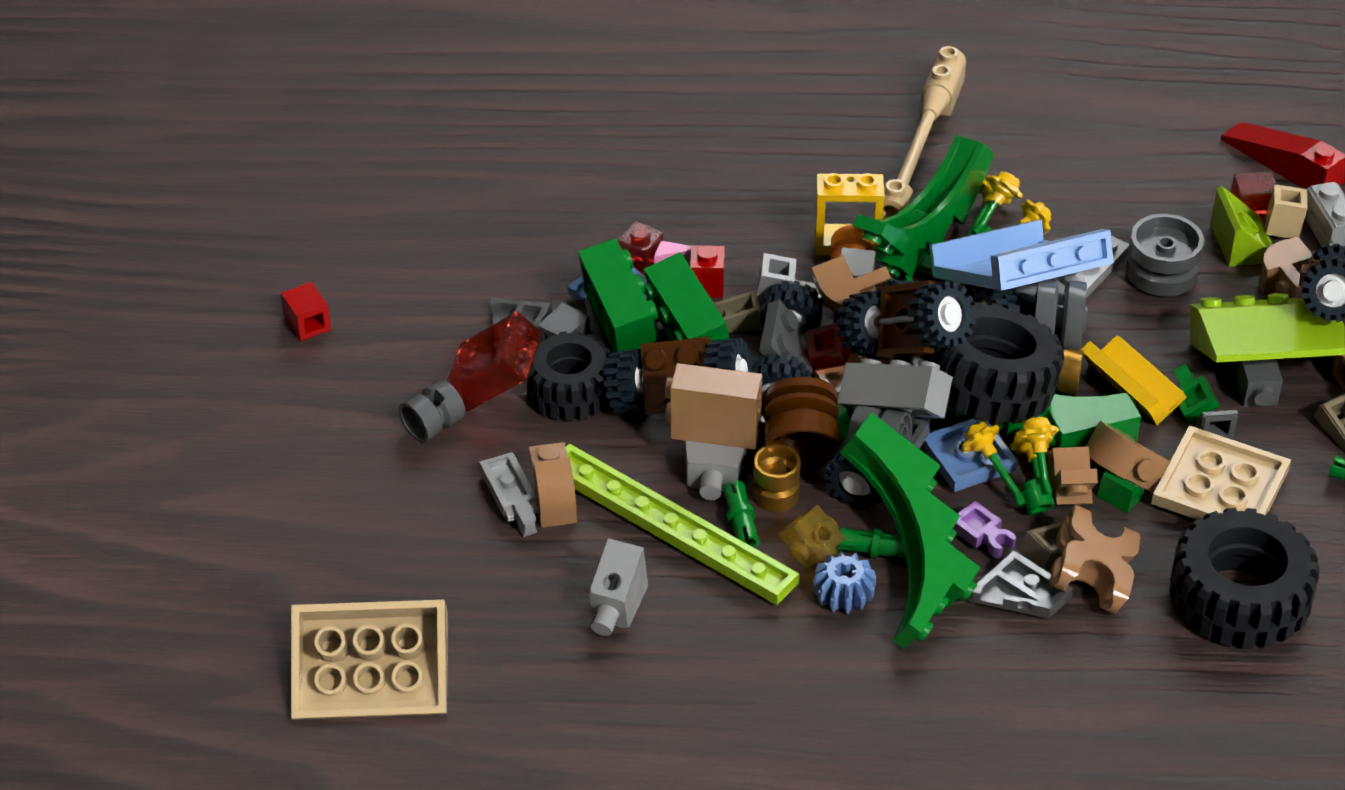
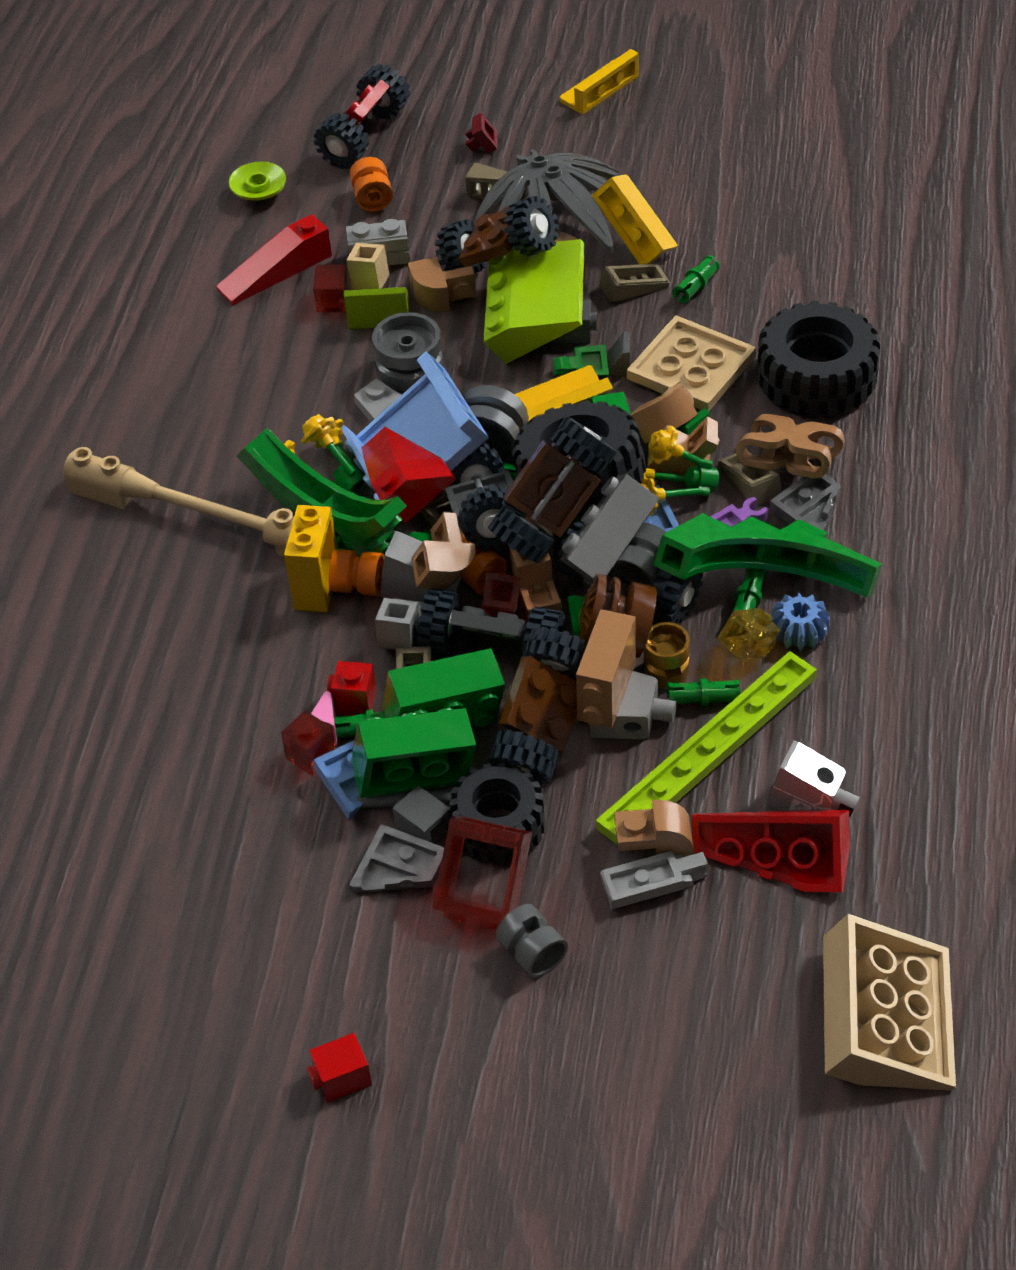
camera: 80 degrees left, 5 degrees up
(557, 583) = (788, 846): none -> red wedge
(953, 252) = (404, 471): none -> red wedge

